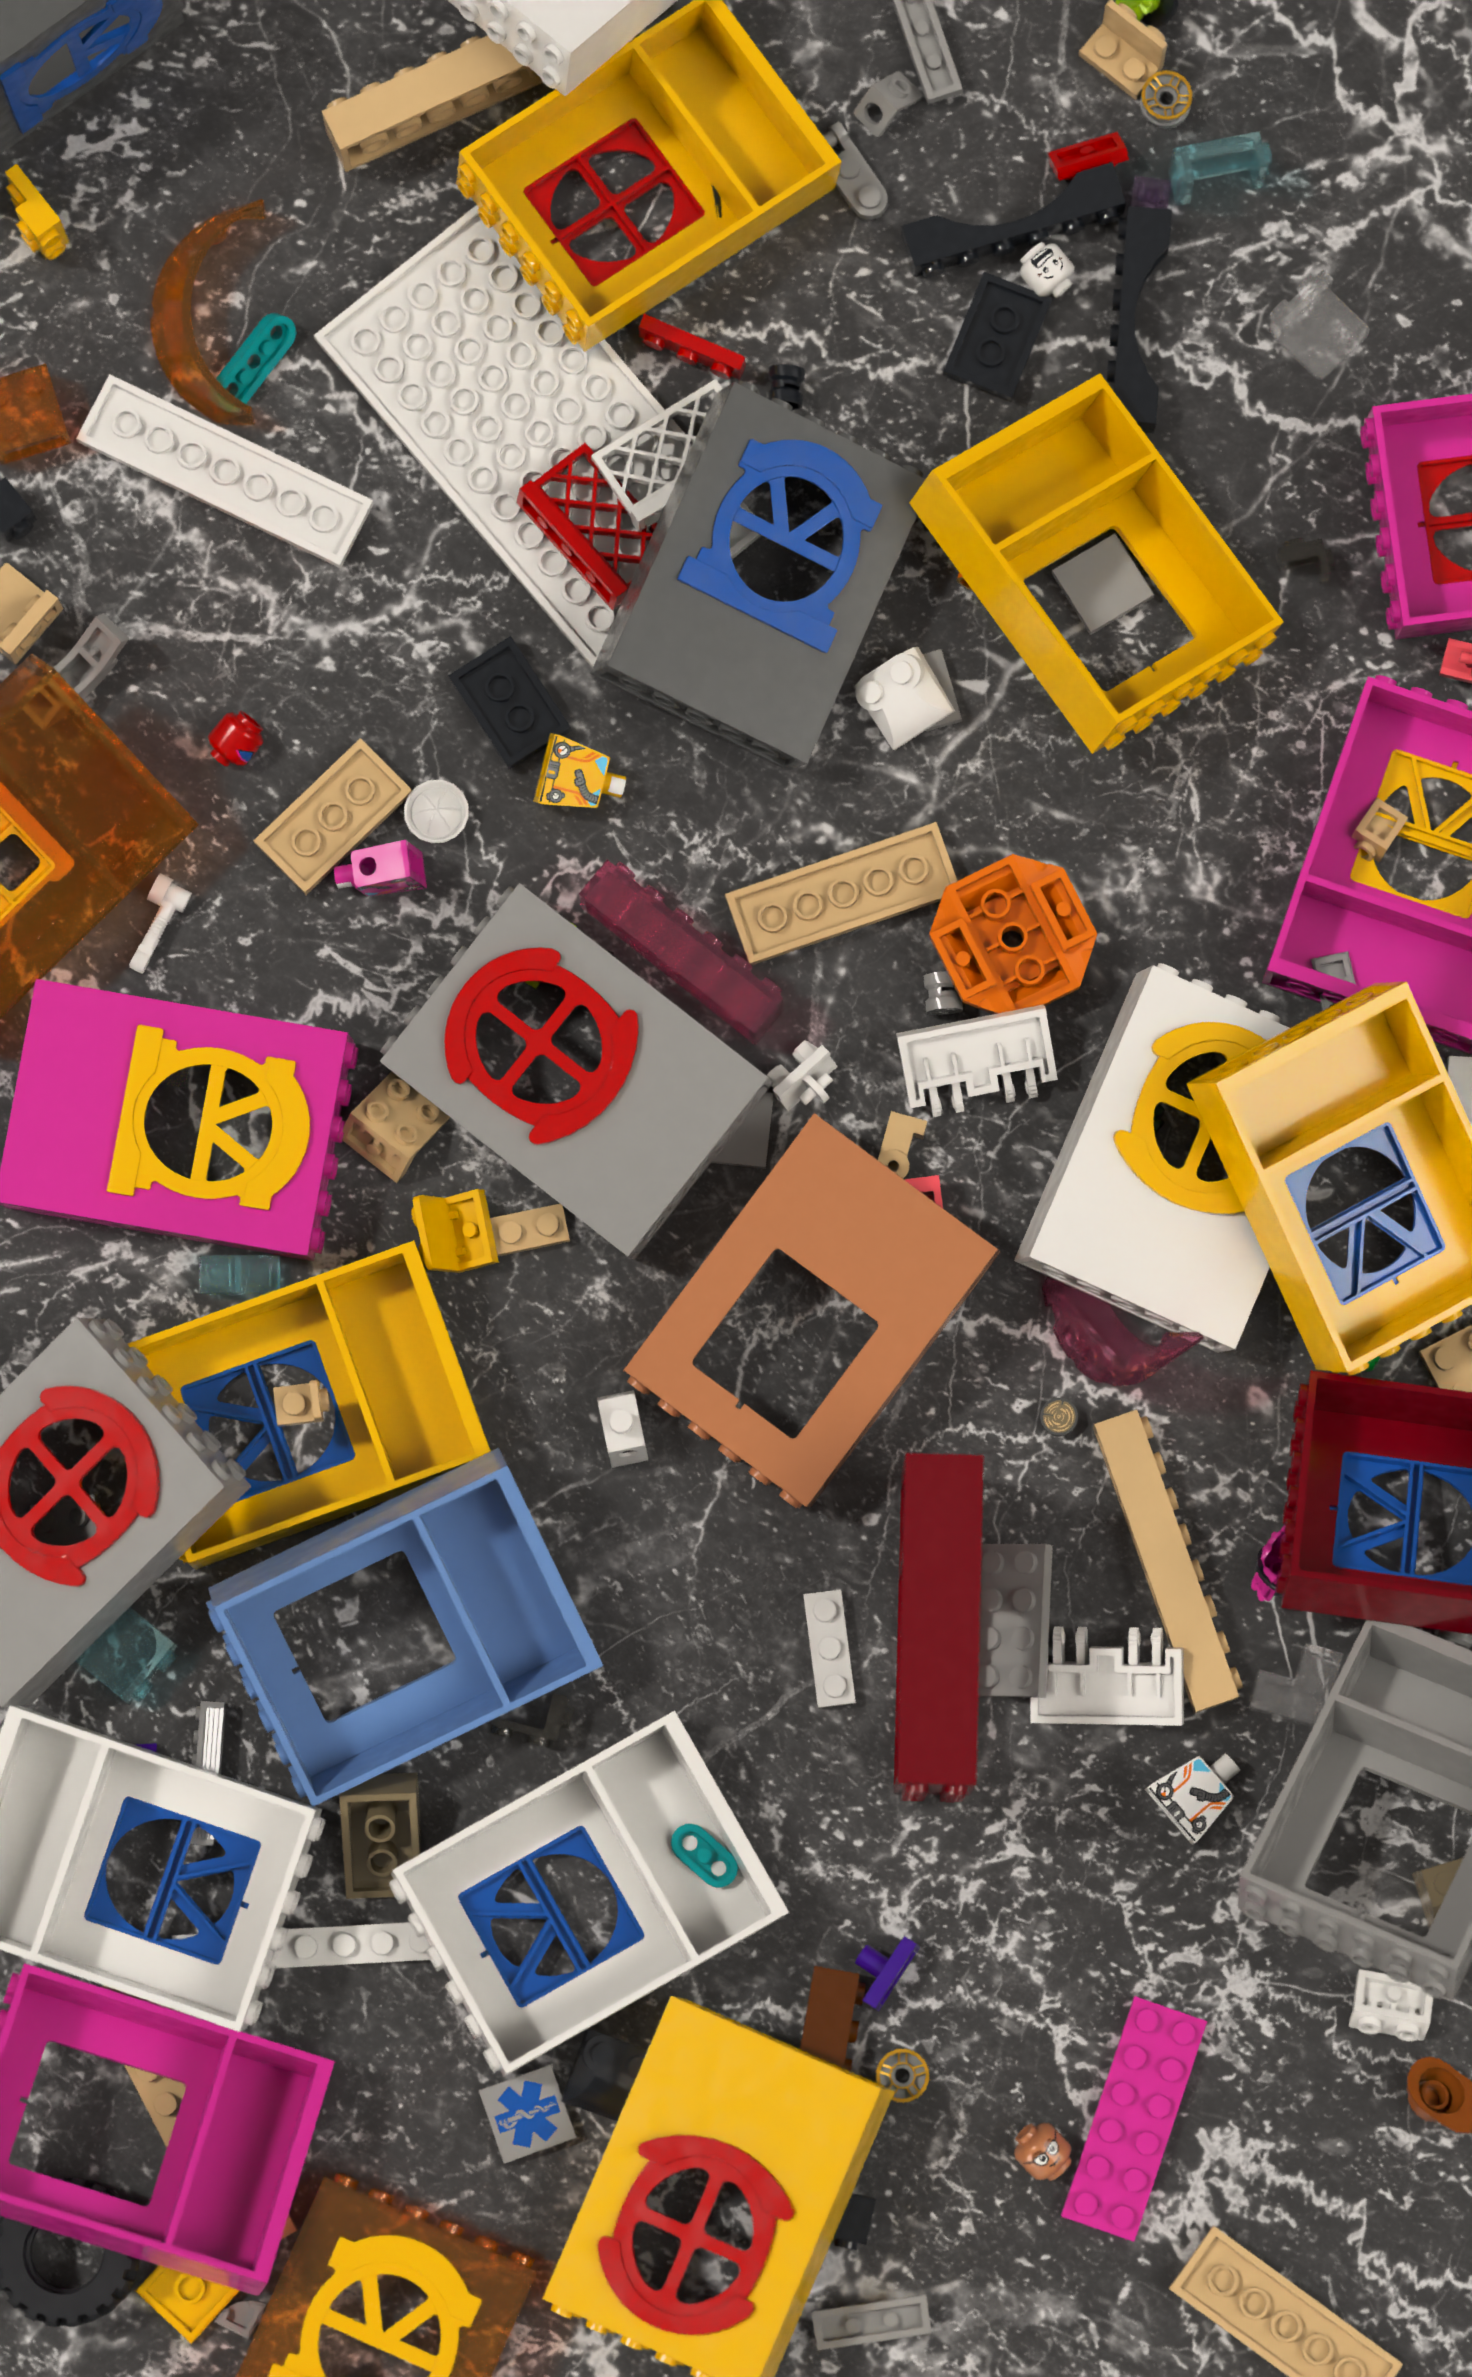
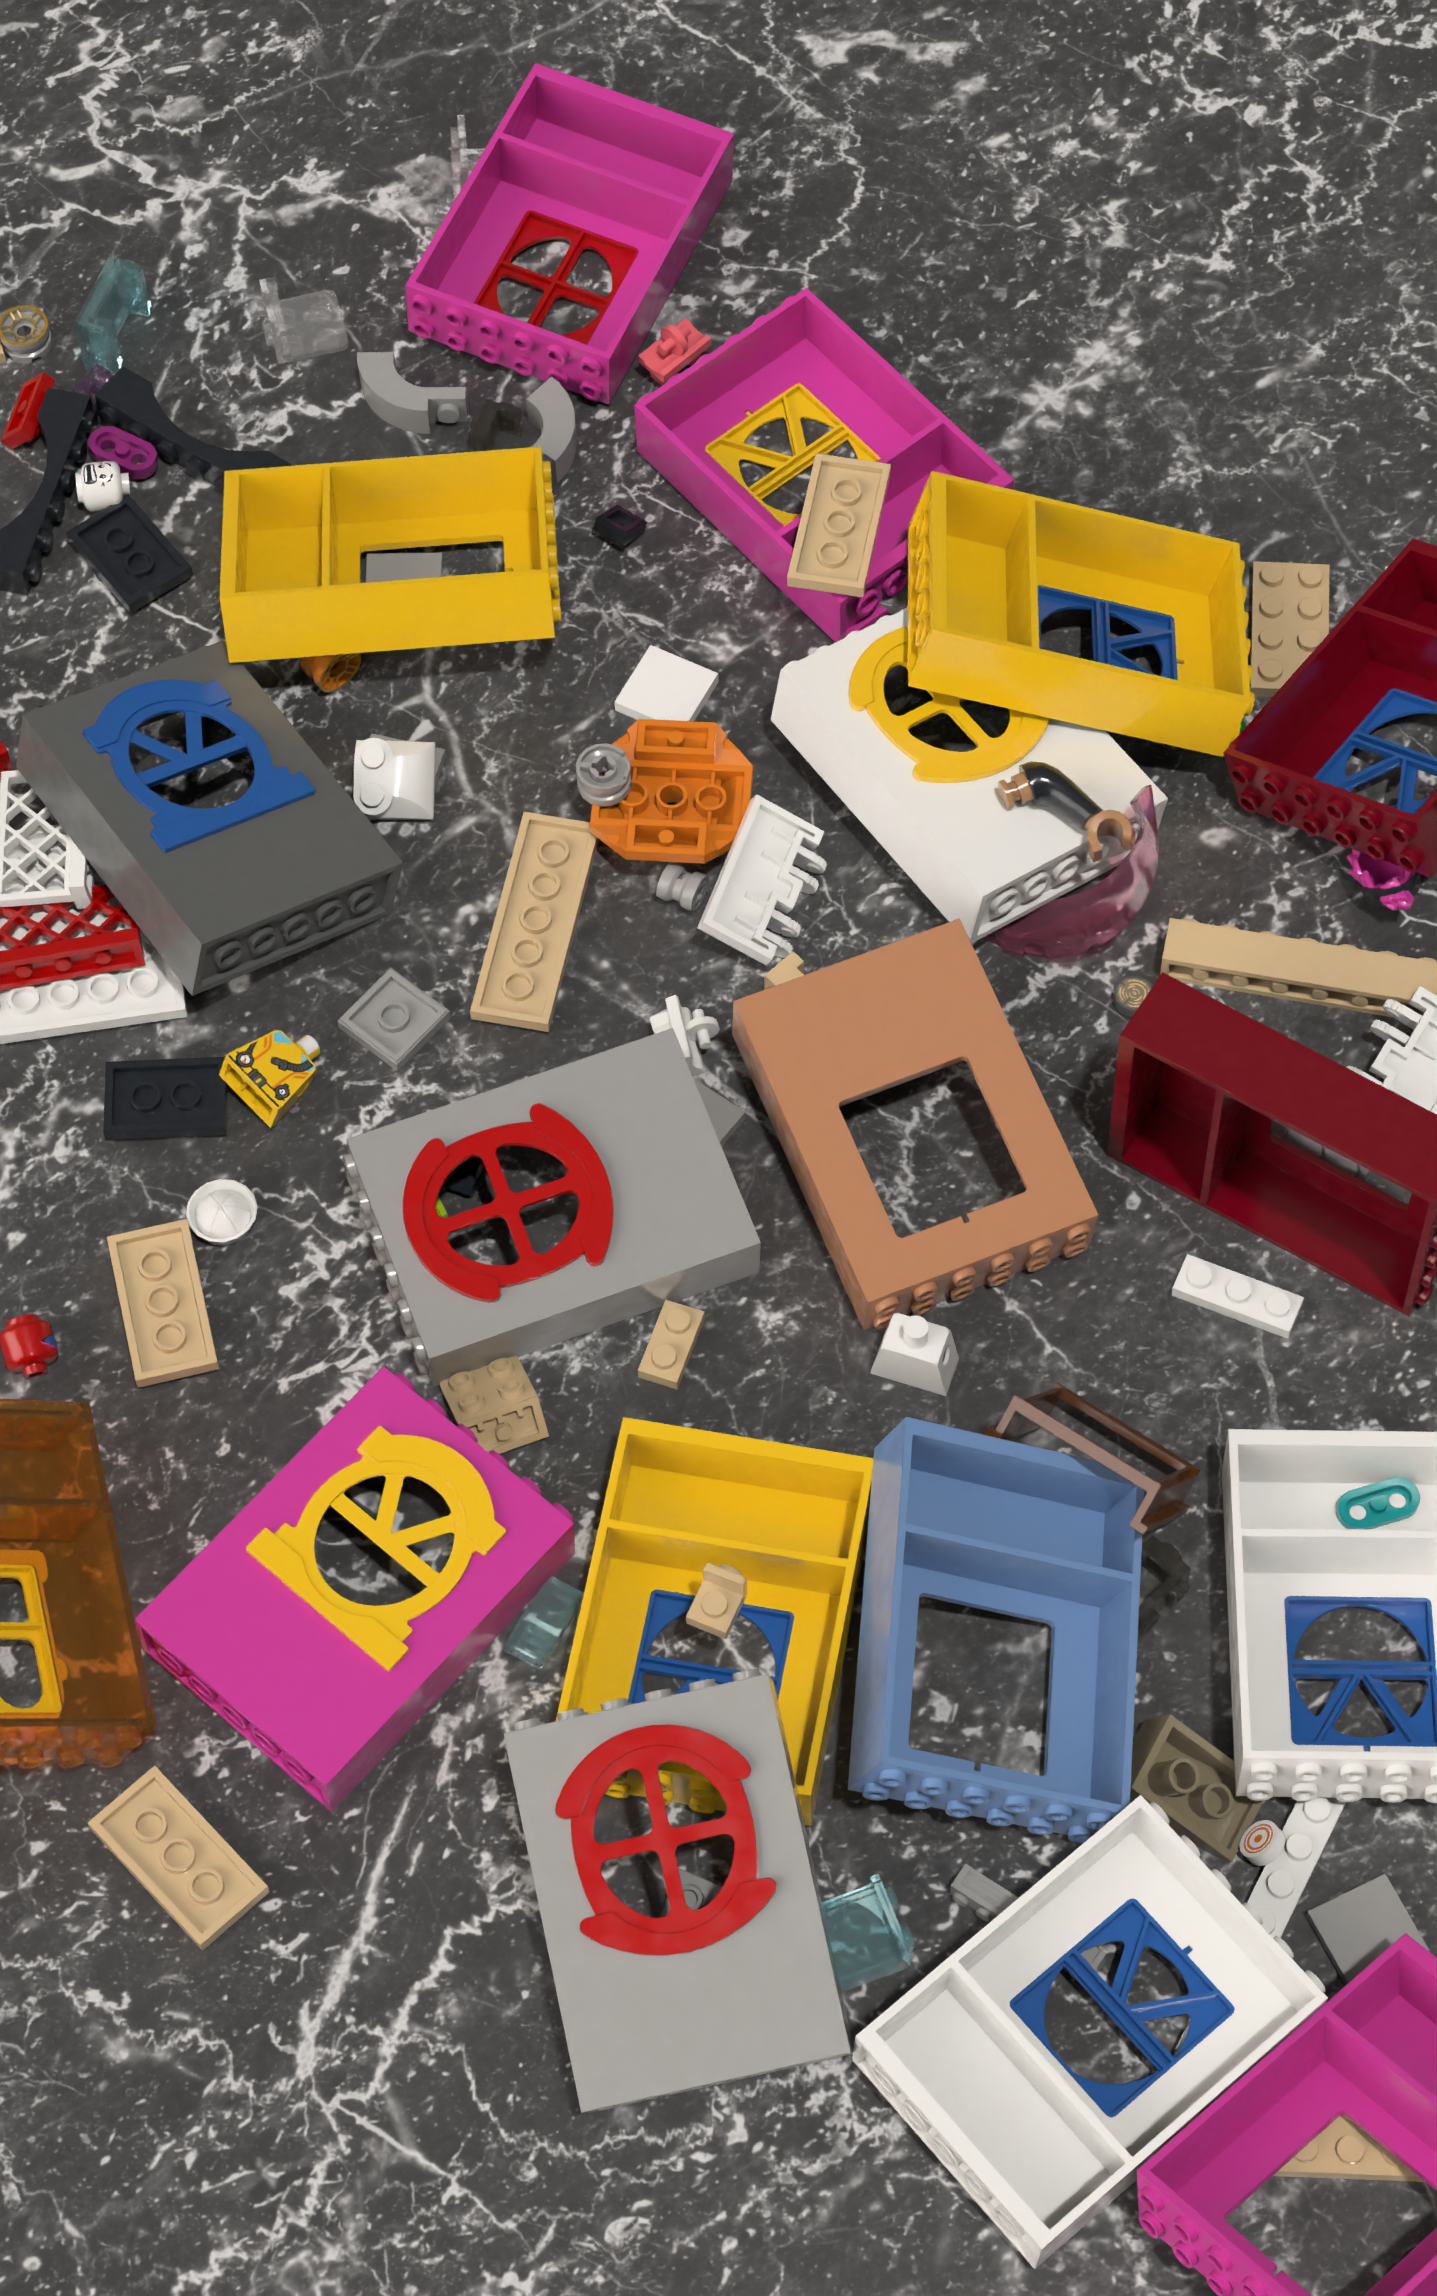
camera: 60 degrees left, 20 degrees down
(169, 898) = (138, 1489): white brick -> none
(346, 2029) = (1362, 1926): none -> light grey tile
(369, 1914) = (1262, 1842): none -> white tile
(397, 868) = (245, 1278): dark pink torso -> none
(454, 1231) = (634, 1394): yellow bracket -> none
(569, 1687) = (1163, 1496): none -> reddish brown piece
(681, 951) = (497, 1055): clear pink brick -> none
(689, 835) = (394, 1019): none -> light grey tile
(984, 885) = (612, 786): none -> light grey wheel
(1095, 265) = (126, 451): none -> magenta plate
(1129, 865) = (666, 688): none -> white tile
(1167, 1251) = (1052, 788): none -> piece
(1271, 726) = (620, 525): none -> black tile
(1292, 437) = (406, 404): none -> light grey arch
(1331, 618) = (554, 416): none -> light grey arch
(1338, 925) = (839, 525): none -> tan plate
(1374, 834) = (768, 498): tan bracket -> none

